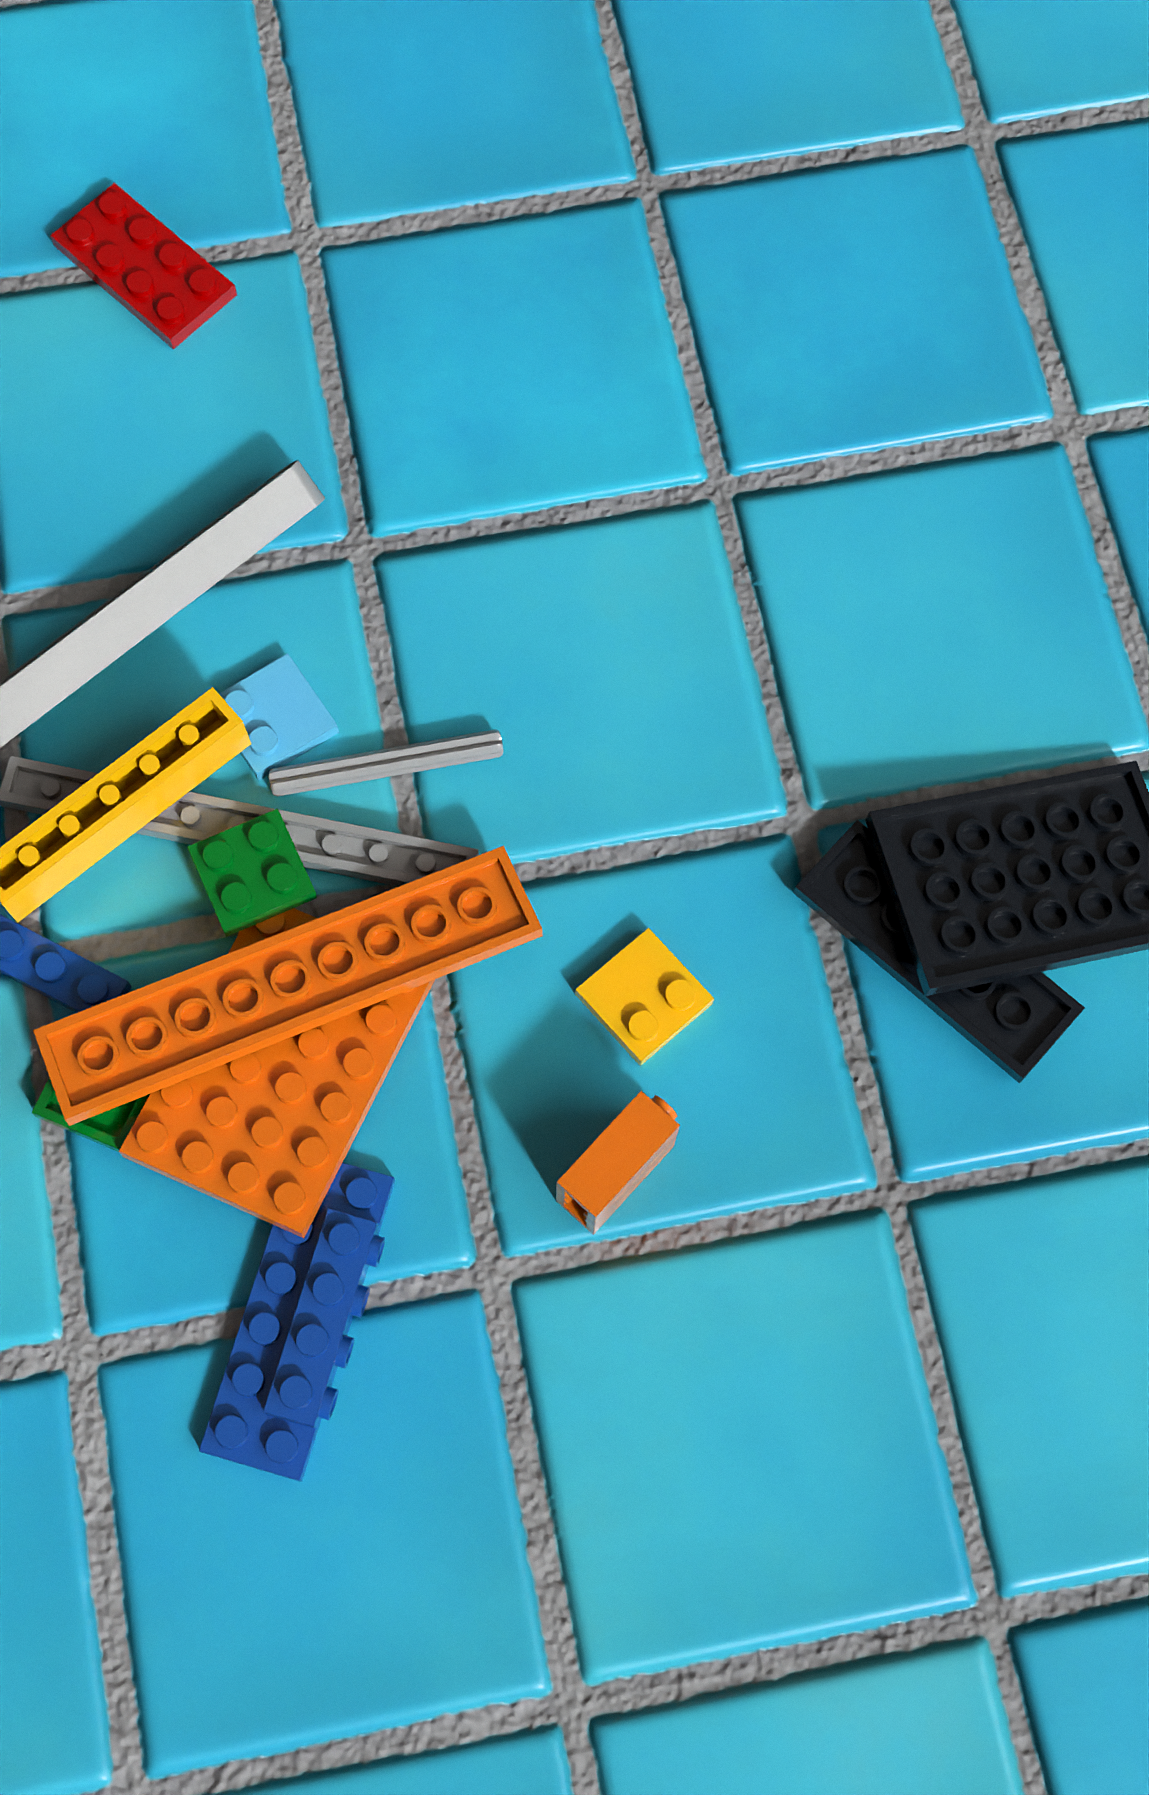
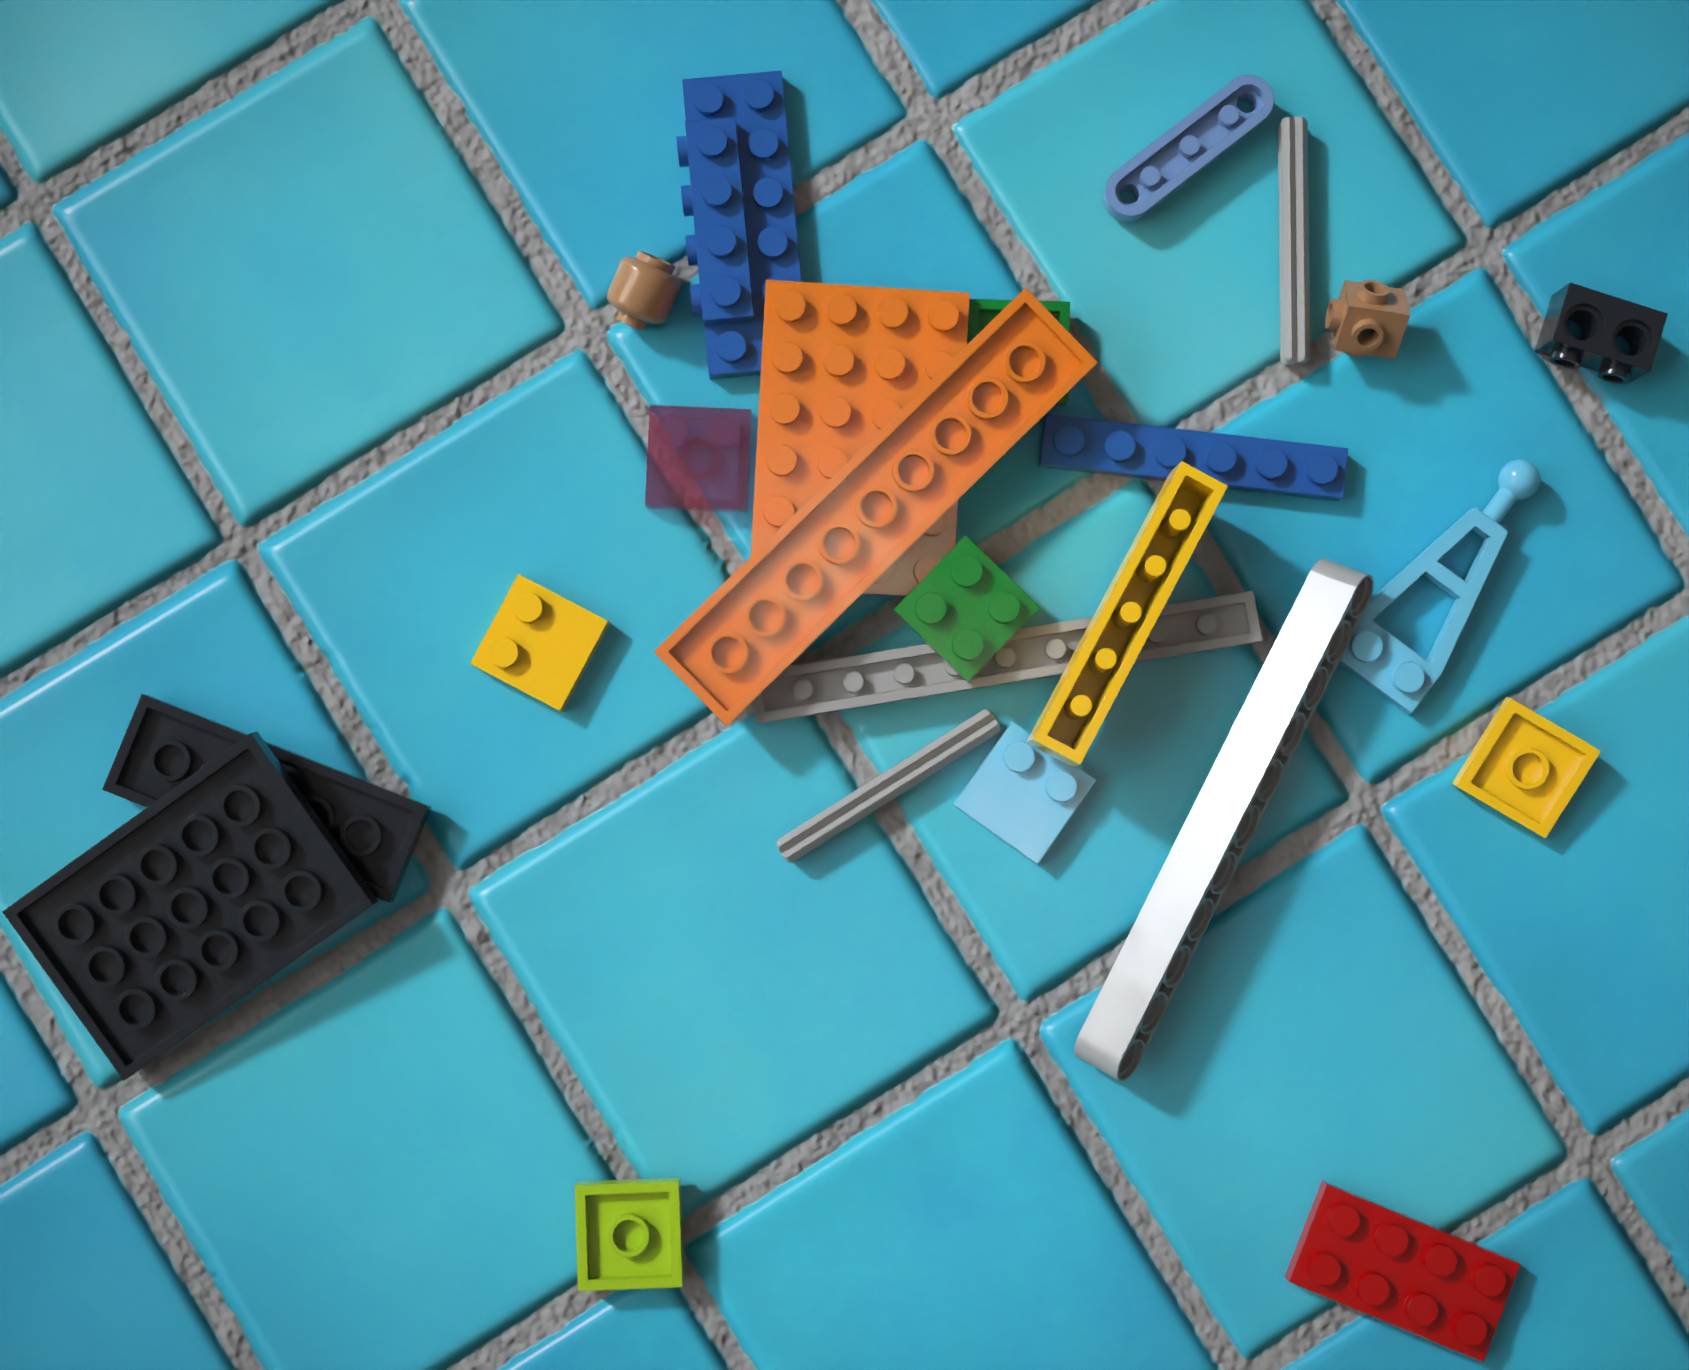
camera: 160 degrees right, 15 degrees up
(421, 1278) = (643, 290): none -> medium nougat head
(435, 1107) = (698, 458): none -> clear pink plate
(618, 1161) = (497, 455): orange brick -> none
(746, 498) = (629, 1234): none -> lime plate

